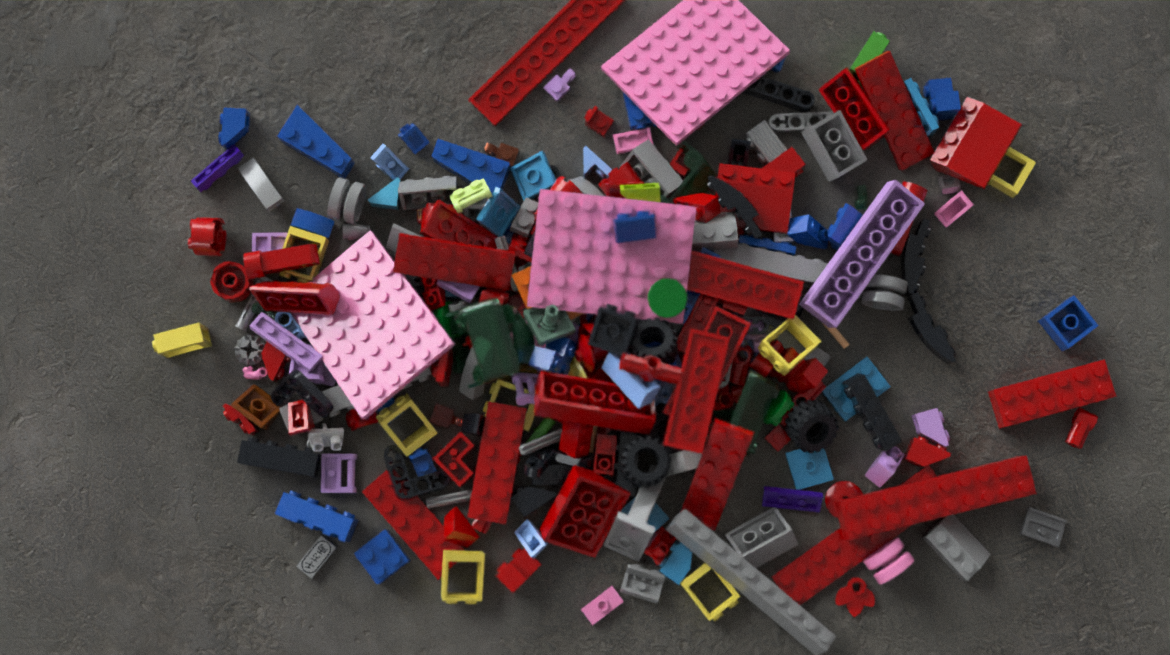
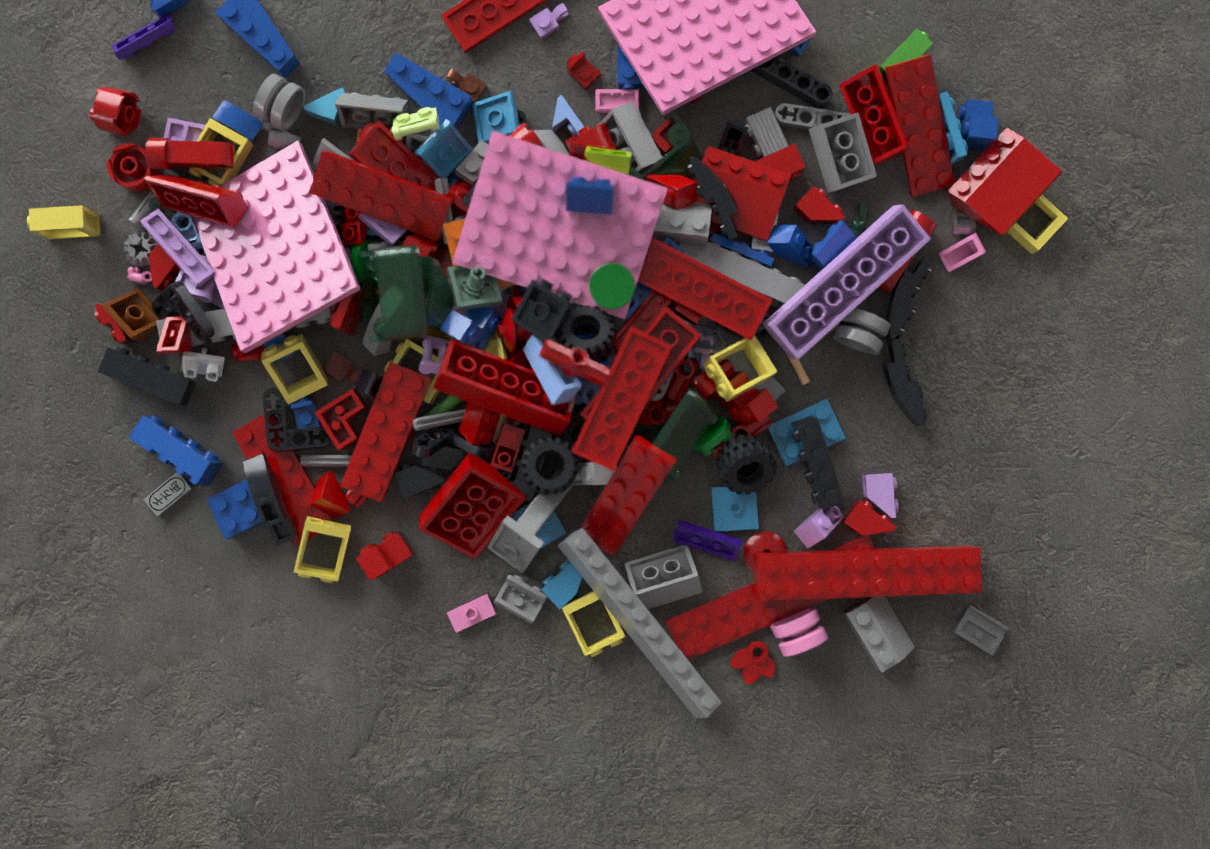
camera: 15 degrees right, 5 degrees up
(261, 184) = (189, 66): light grey slope -> none
(332, 473) = (203, 406): lavender plate -> none
(389, 162) = (336, 69): light blue slope -> none
(408, 542) = (268, 500): none -> black slope
(413, 137) = (370, 47): blue bracket -> none
(530, 538) = (406, 523): light blue slope -> none
(659, 545) = (547, 561): red hips -> none
(777, 438) = (706, 469): red plate -> none
(822, 197) = (817, 209): none -> red slope
(1051, 394) = (1025, 484): red brick -> none
(1068, 323) = (1061, 408): blue brick -> none
(1082, 423) = (1051, 524): red piece -> none

